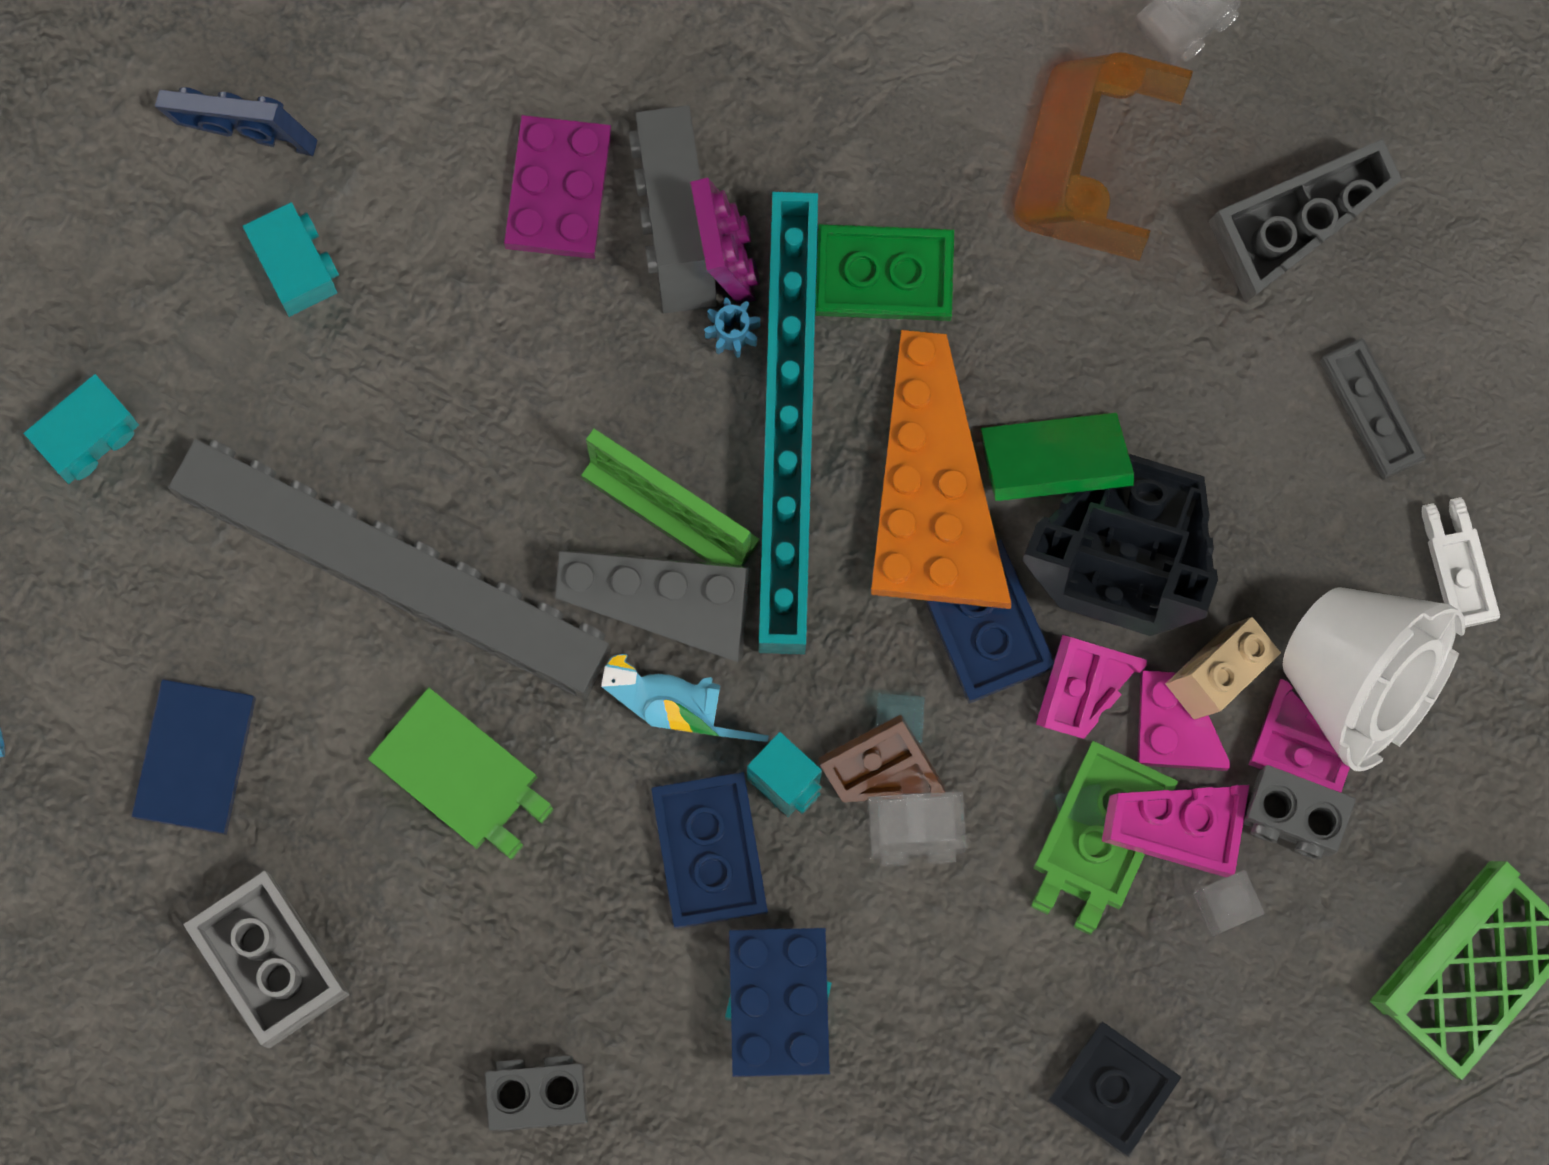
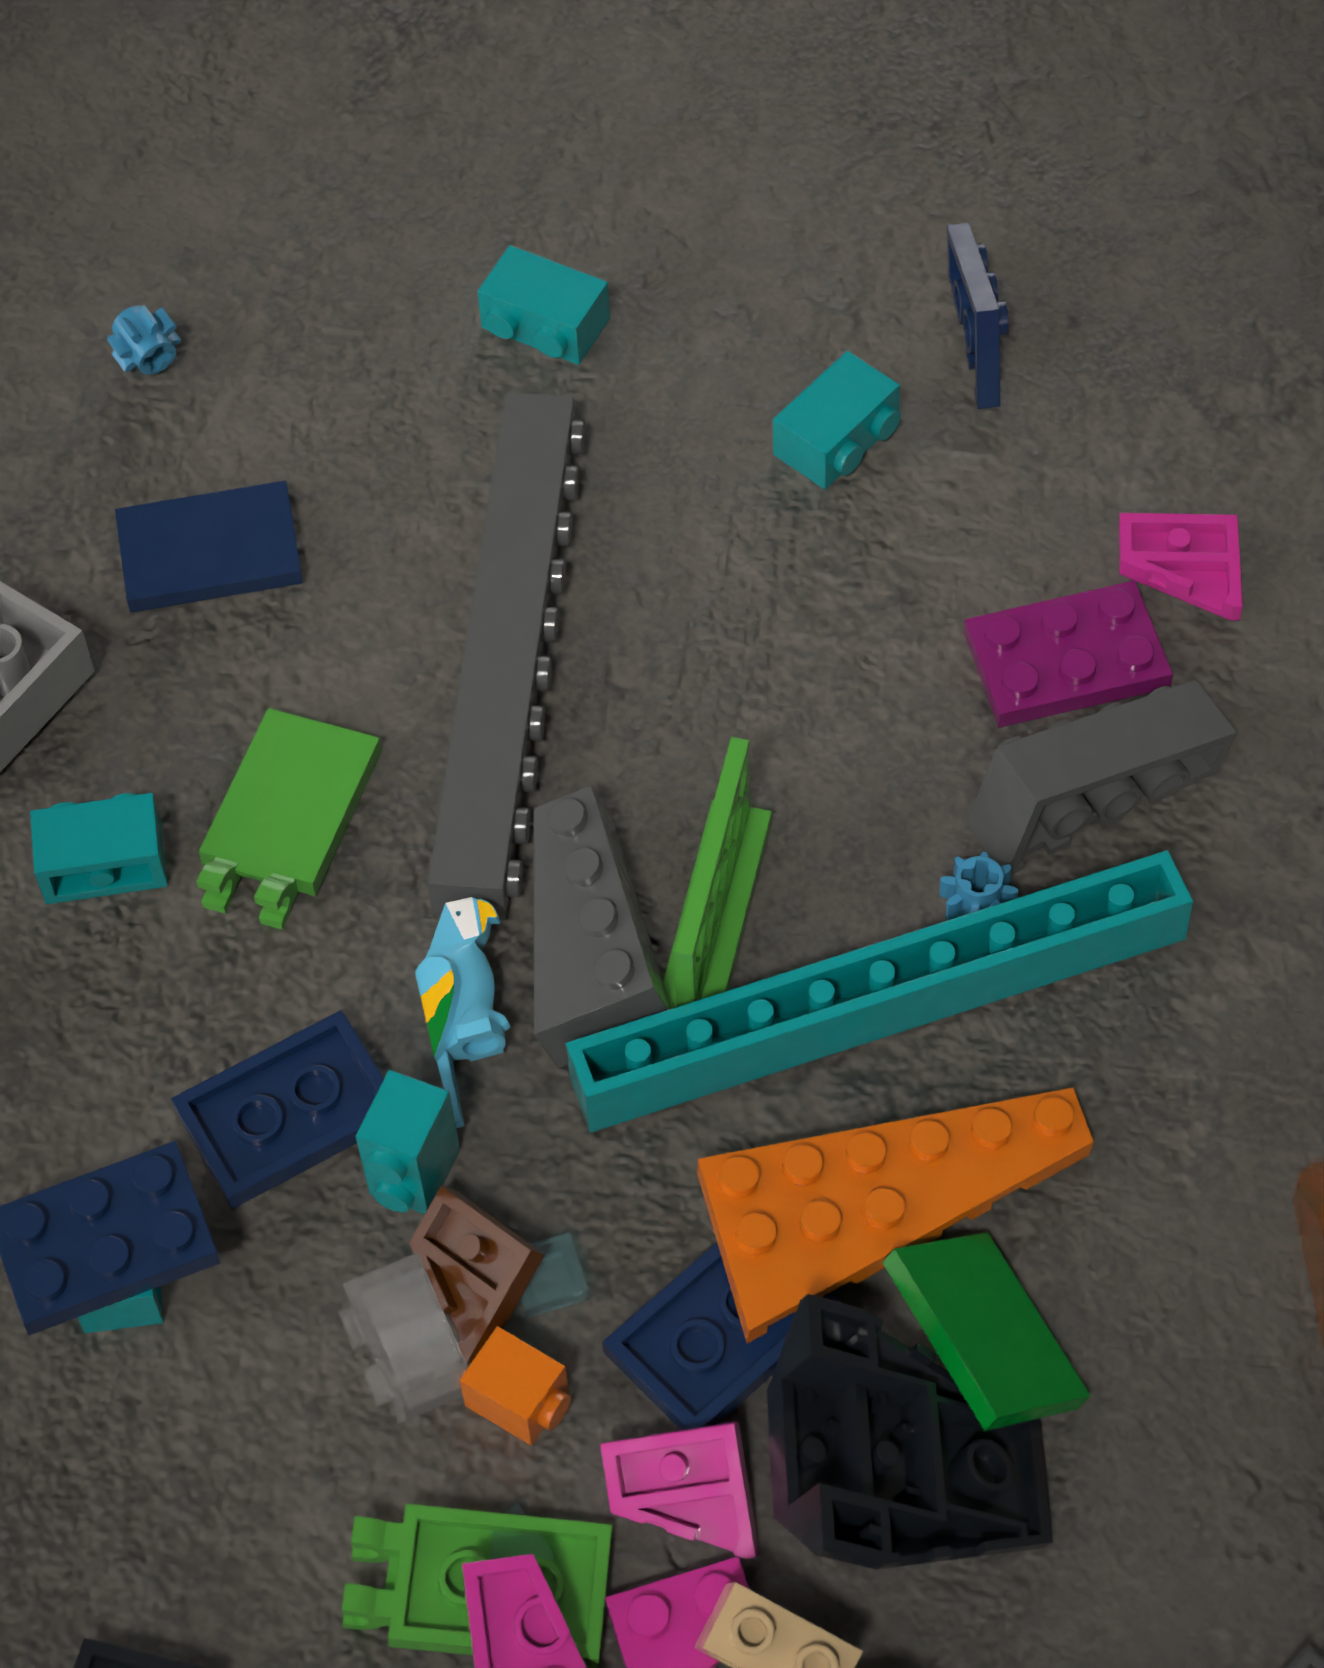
camera: 75 degrees right, 20 degrees down
(440, 917) = (98, 848): none -> teal brick
(517, 73) = (1185, 557): none -> dark pink wing
(724, 240) = (1071, 809): magenta plate -> none
(884, 272) = (1144, 1048): green tile -> none
(978, 766) = (516, 1387): none -> orange brick

